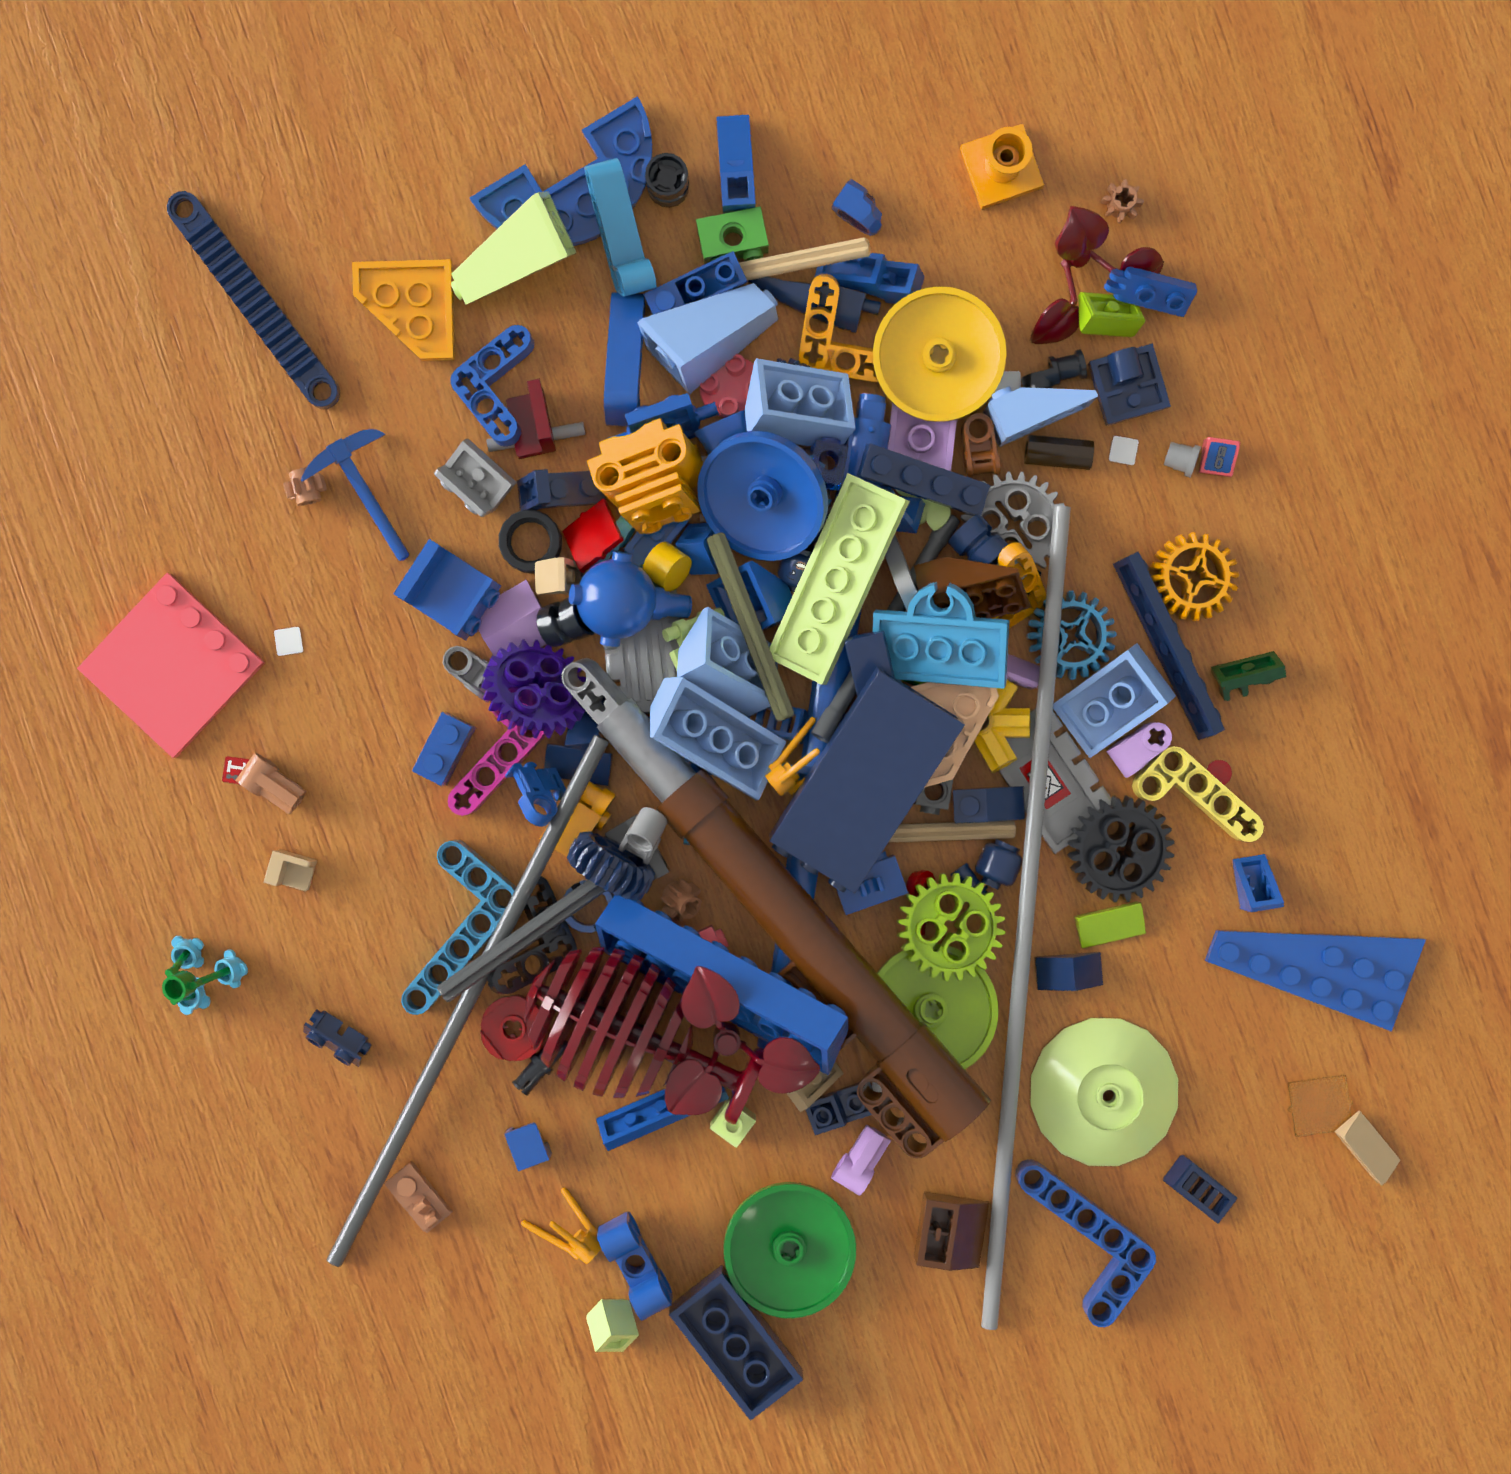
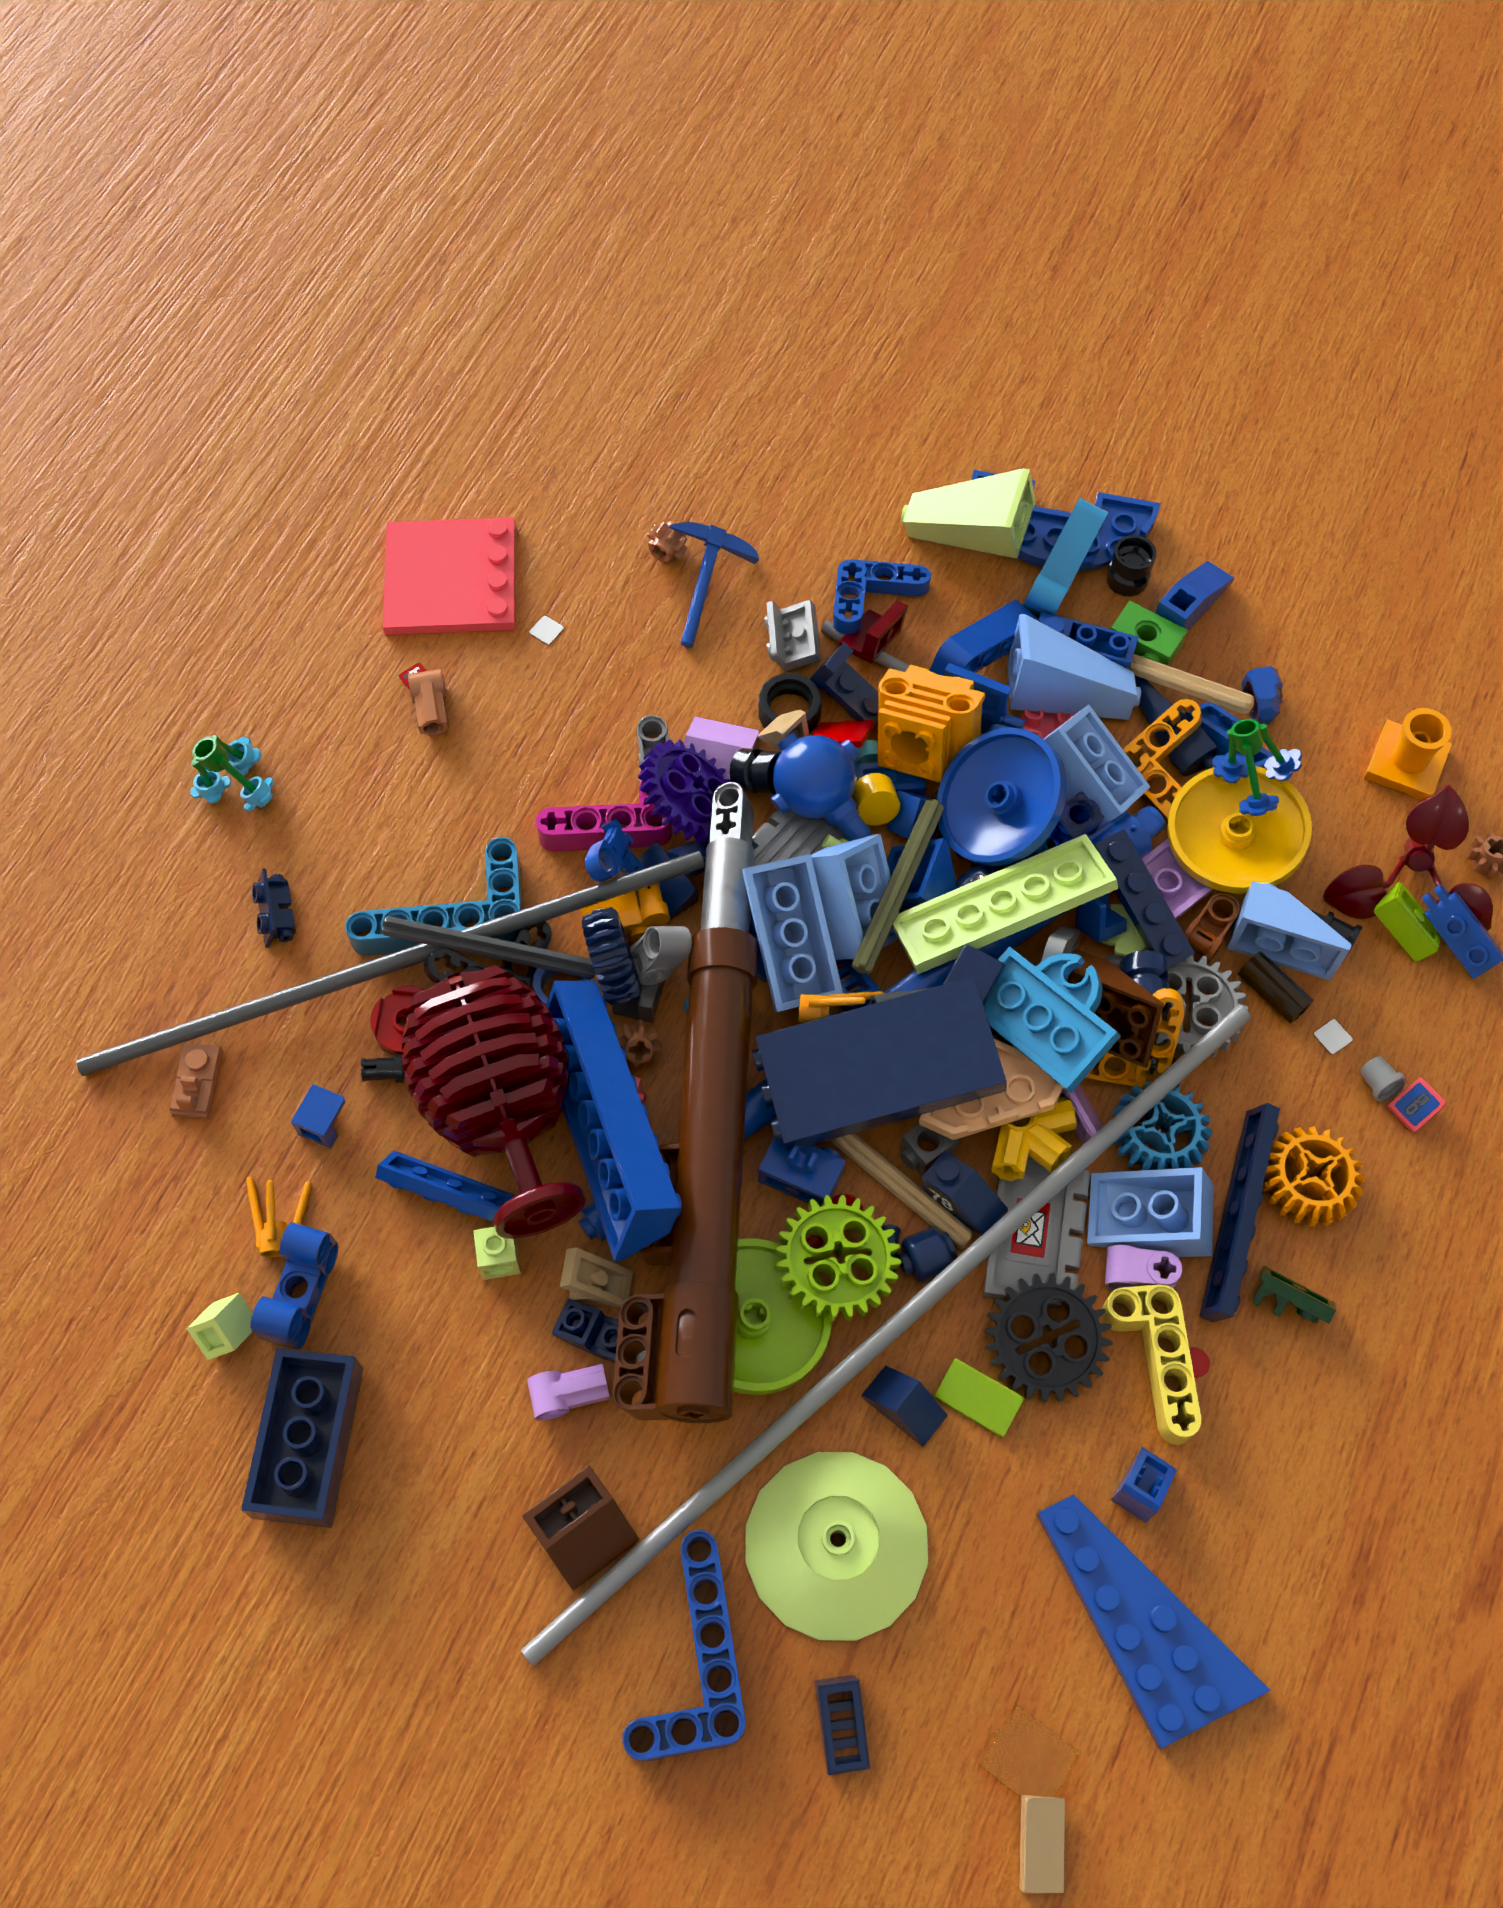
camera: 45 degrees right, 25 degrees down
(253, 299) = (756, 419): dark blue gear -> none
(290, 870) = (375, 766): tan panel -> none
(411, 301) = (863, 499): light orange plate -> none
(443, 749) = (577, 780): blue brick -> none
(448, 590) = (695, 683): blue panel -> none
(707, 1002) = (593, 1203): dark red plant -> none
(789, 1250) = (430, 1403): green dish -> none
(900, 301) = (1247, 738): none -> plant
(1129, 384) = (1382, 986): dark blue plate -> none

